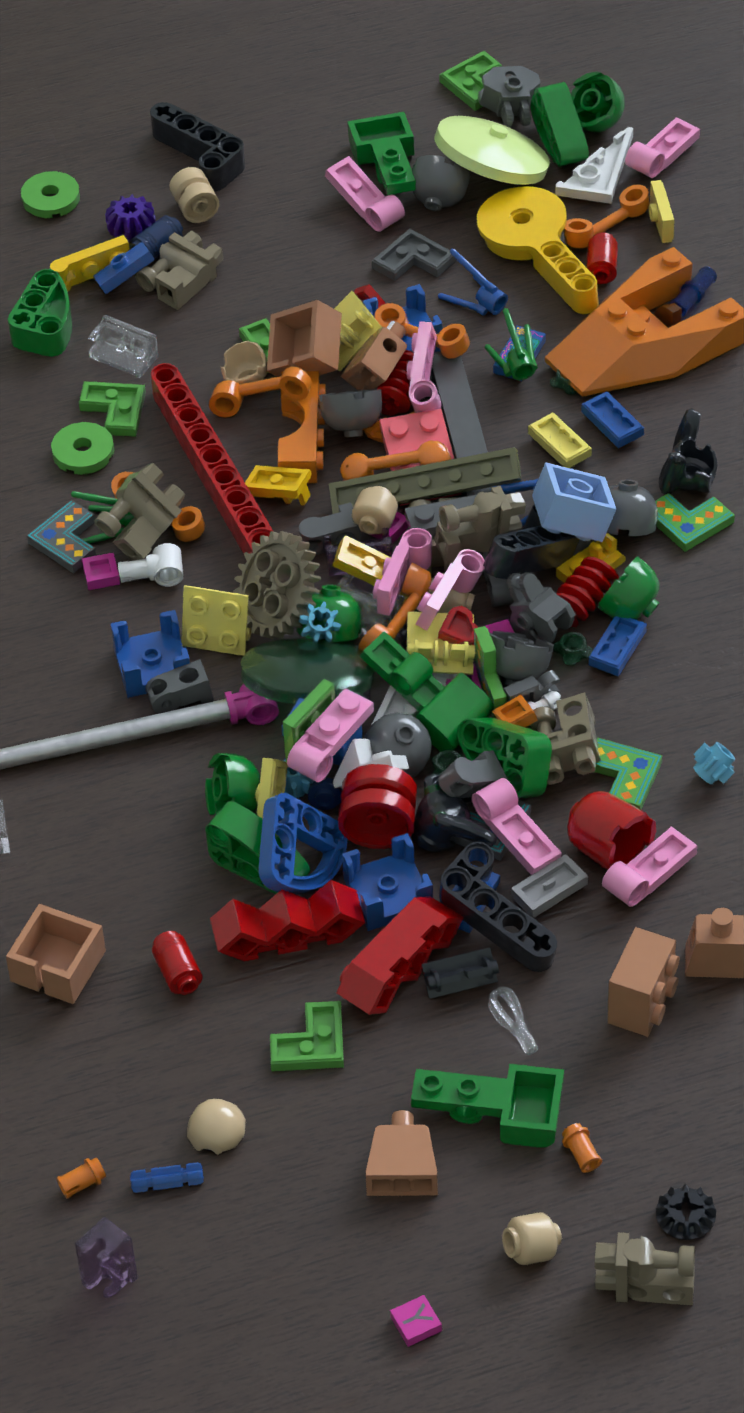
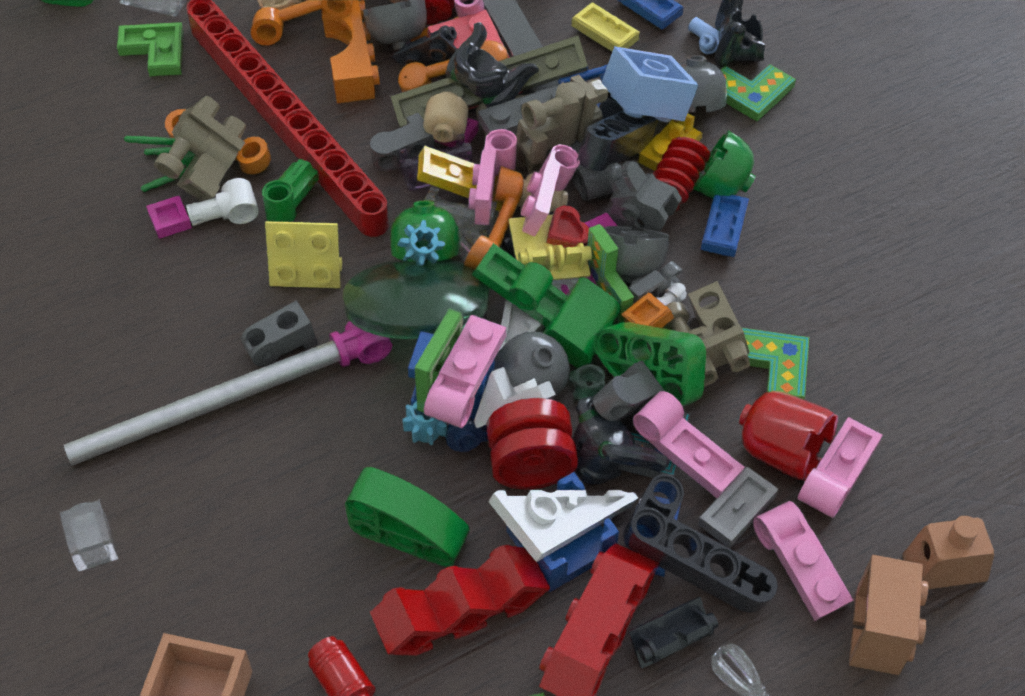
camera: 15 degrees left, 5 degrees up
(59, 536) = (118, 185): dark grey tile -> none
(78, 435) = (125, 78): bright green tile -> none
(149, 653) = (238, 301): blue panel -> none
(210, 564) = (285, 194): none -> green piece
(232, 780) = (361, 441): green cylinder -> none
(271, 781) = (407, 445): light yellow plate -> none
(278, 583) = (368, 205): dark tan gear -> none
(280, 483) = (340, 102): yellow plate -> none
(284, 817) = (438, 535): blue beam -> none
(375, 442) = (429, 50): none -> black hinge
(382, 867) = (554, 519): none -> white wing
(418, 473) = (484, 74): none -> black hair
(573, 648) = (682, 233): clear green plate -> none
(591, 933) = (803, 559): none -> bright pink plate
(659, 455) = (708, 35): none -> light blue arm
(714, 763) = (867, 338): medium azure gear -> none

